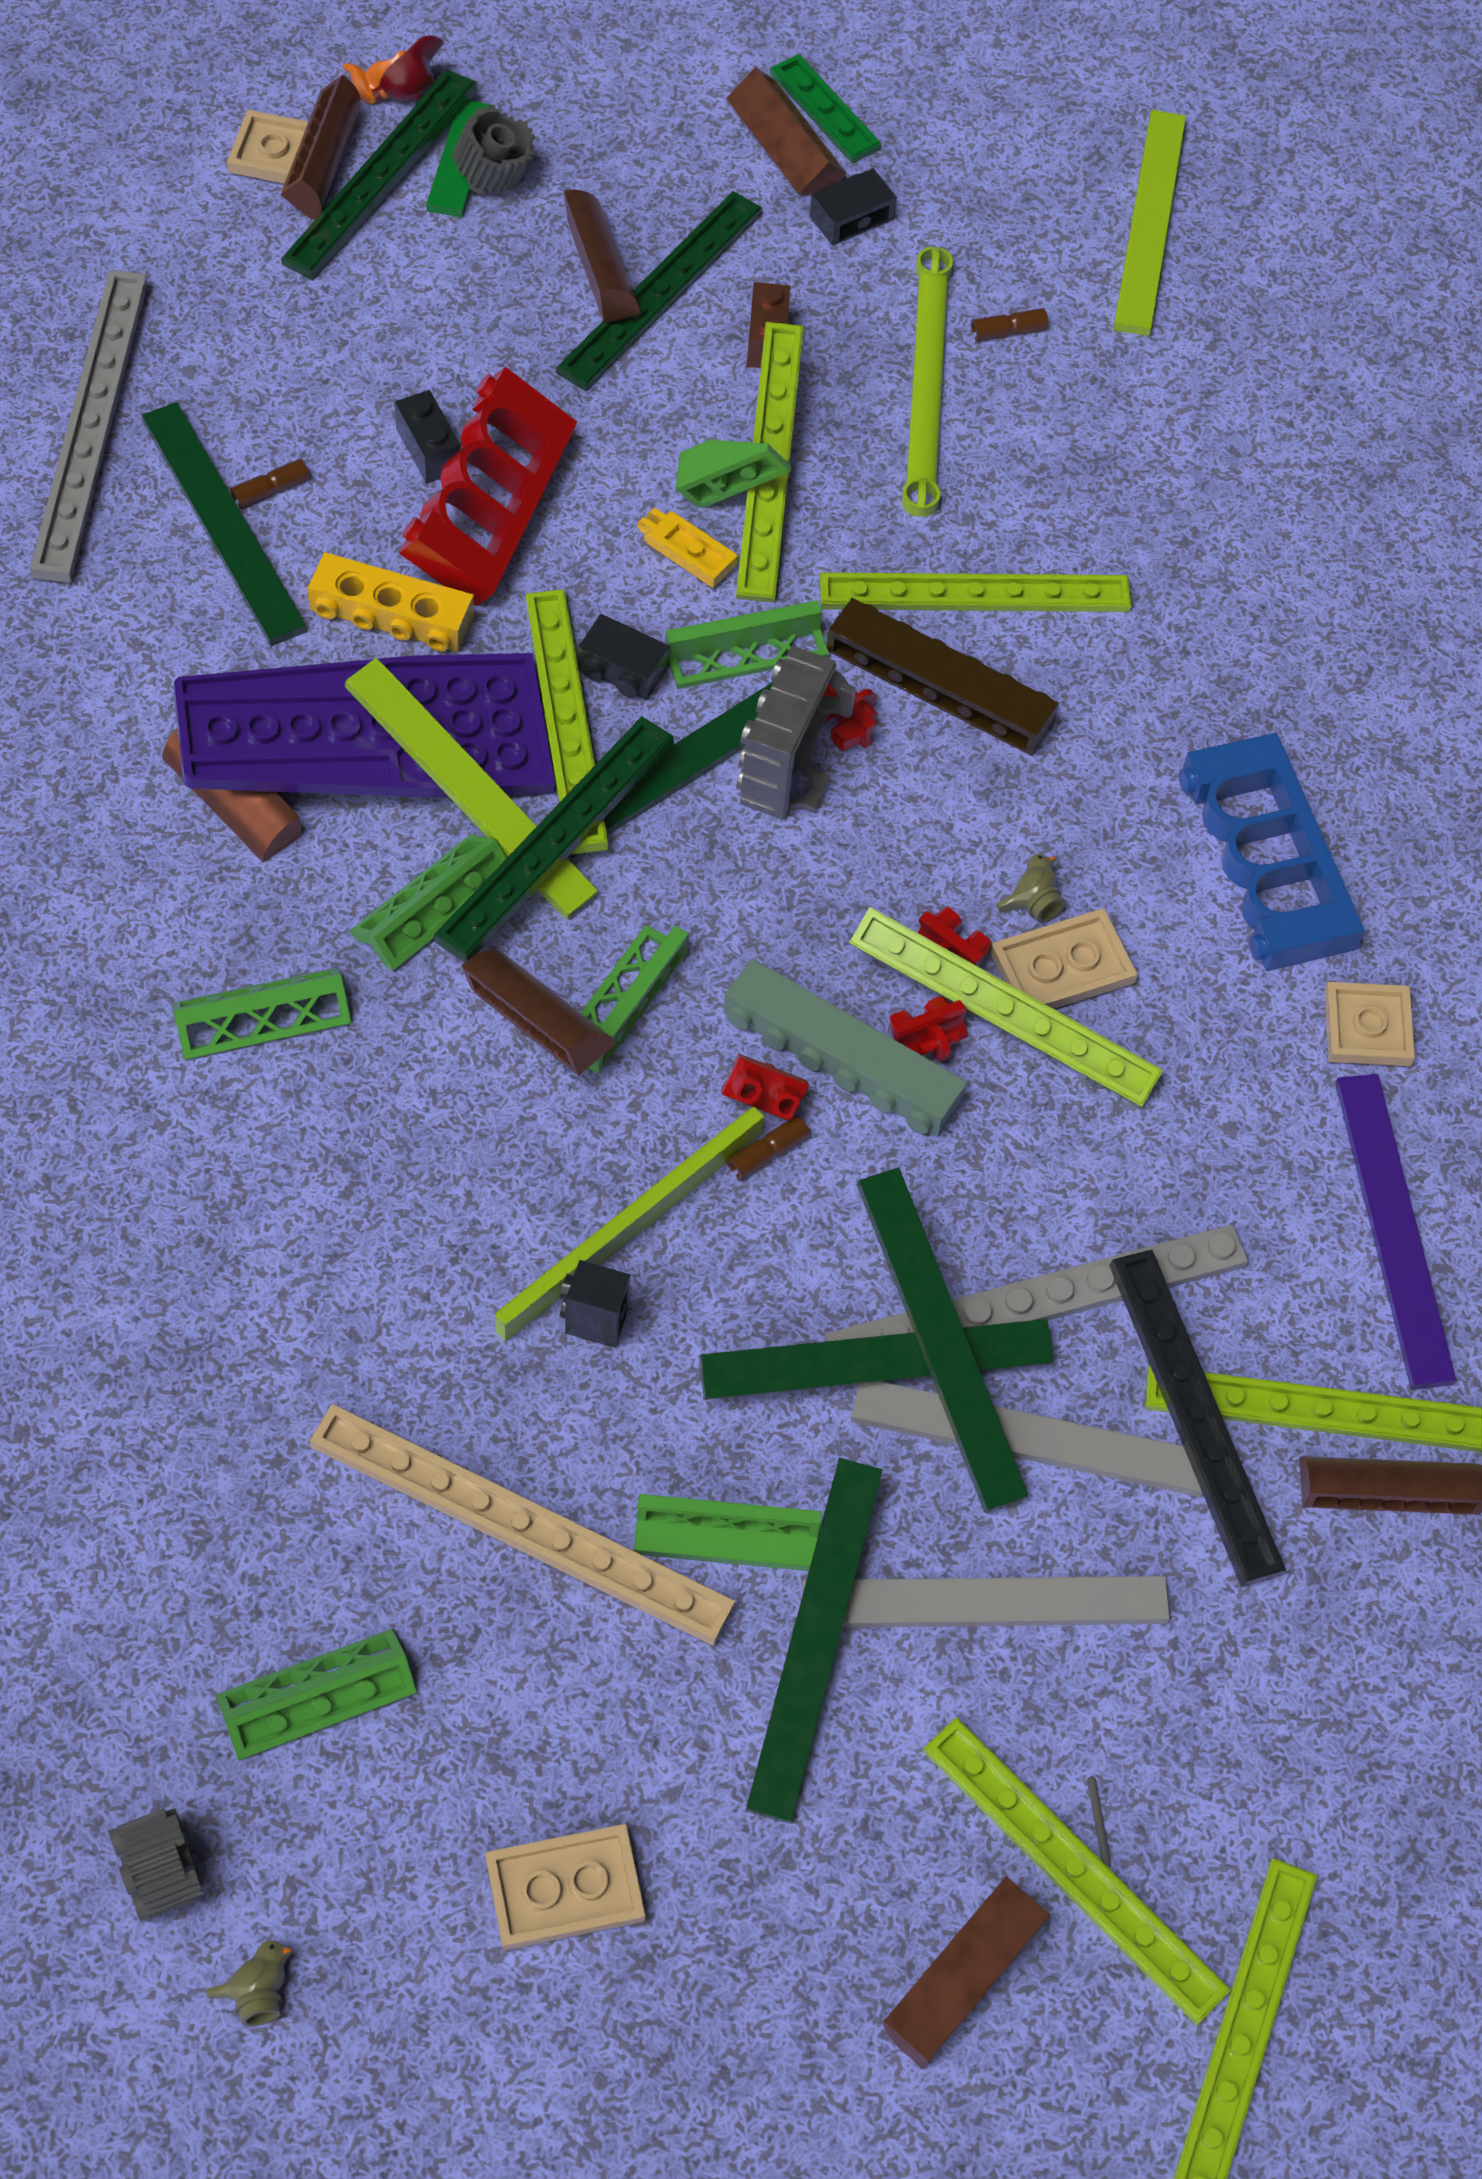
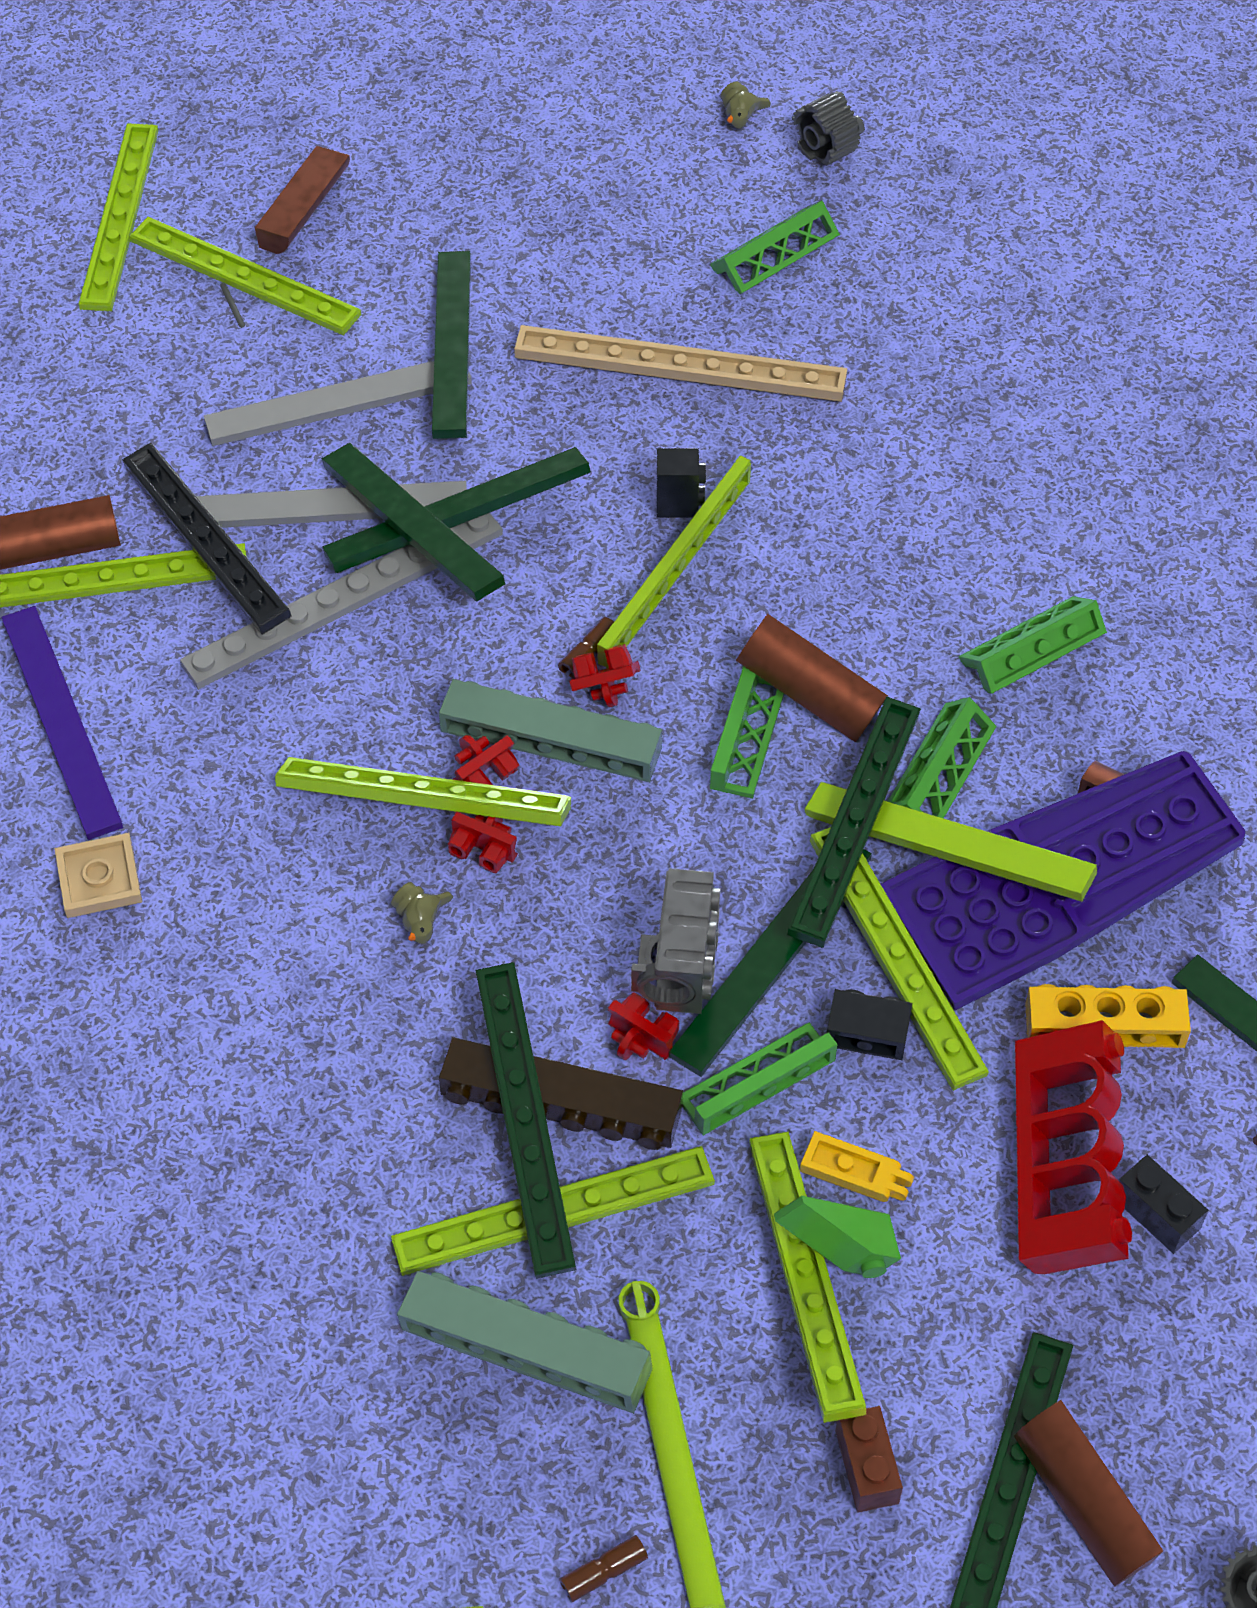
camera: 170 degrees right, 5 degrees down
(564, 1887) = (572, 189): tan plate -> none
(726, 1532) = (534, 391): bright green fence -> none
(986, 647) = (525, 1121): none -> dark green tile
(1033, 480) = (526, 1340): none -> sand green brick
(1066, 960) = (380, 856): tan plate -> none
(1278, 937) = (249, 1078): blue fence -> none

